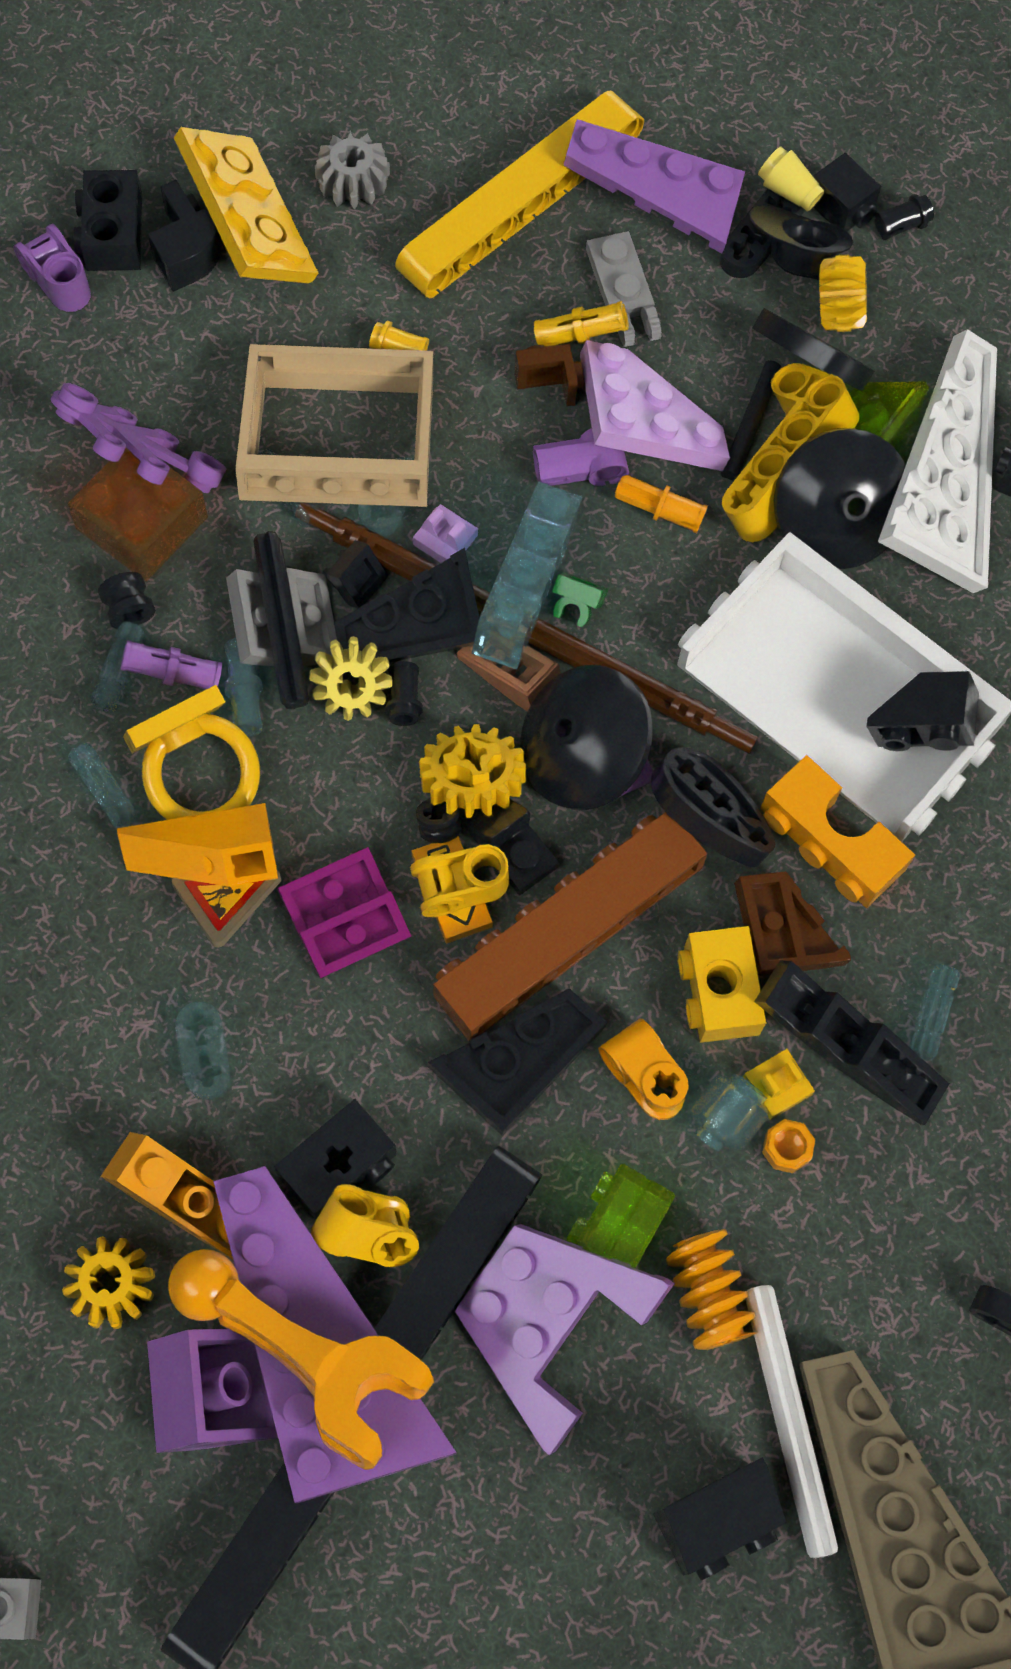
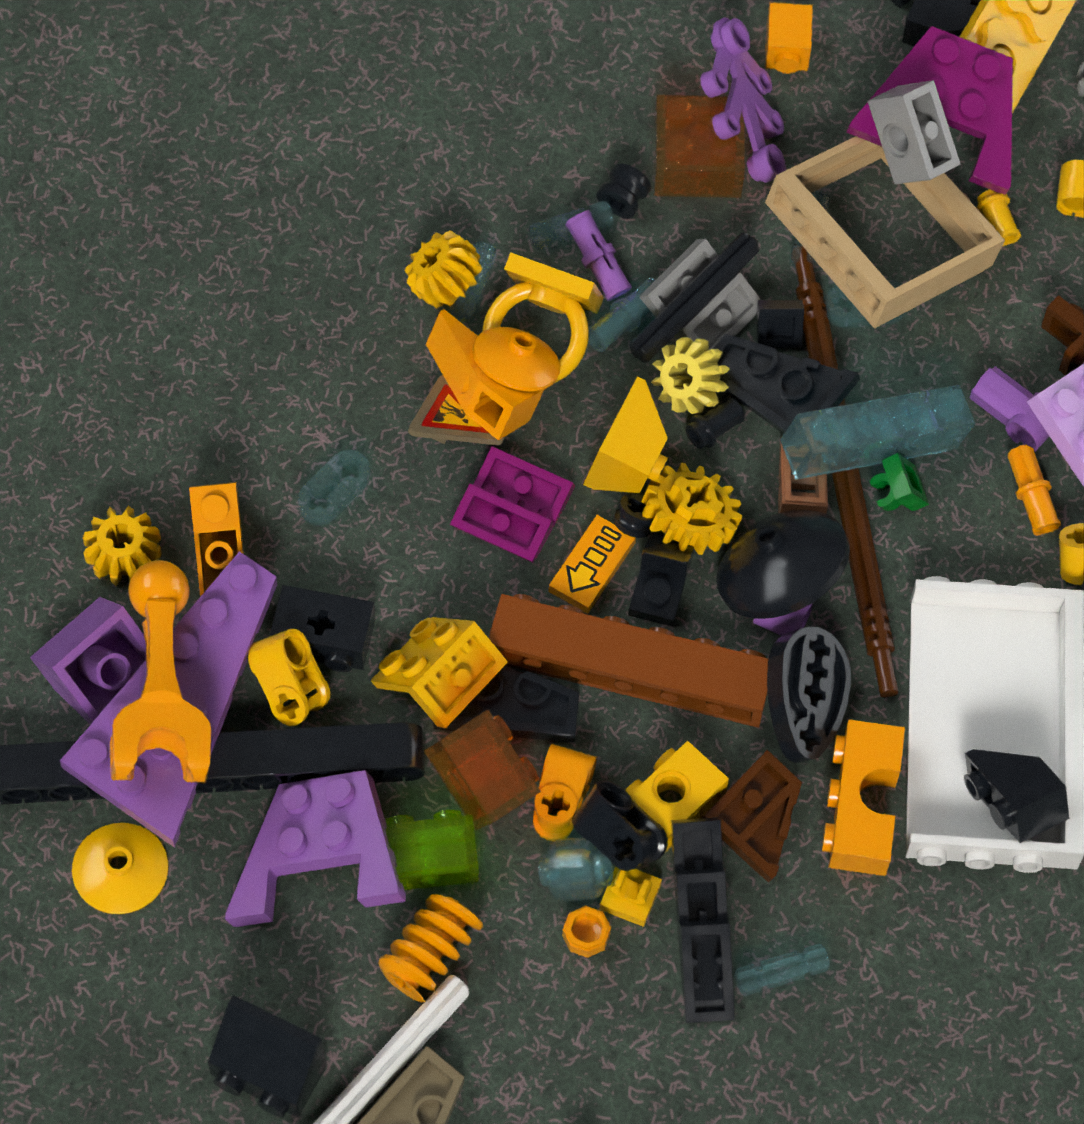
camera: 55 degrees right, 5 degrees down
(76, 800) = (443, 269): none -> yellow gear
(97, 366) = (788, 37): none -> light orange brick
(217, 805) = (516, 359): none -> light orange dish
(273, 275) = (974, 95): none -> magenta wing
(294, 334) = (914, 132): none -> light grey brick
(378, 773) = (631, 446): none -> yellow slope
(422, 1547) = (123, 888): none -> yellow dish
(444, 534) = (871, 360): lavender tile -> none
(456, 1087) = (441, 666): none -> yellow bracket
(457, 881) = (591, 552): yellow piece -> none
(594, 1122) = (484, 769): none -> clear orange brick
(728, 1047) = (615, 827): none -> black piece

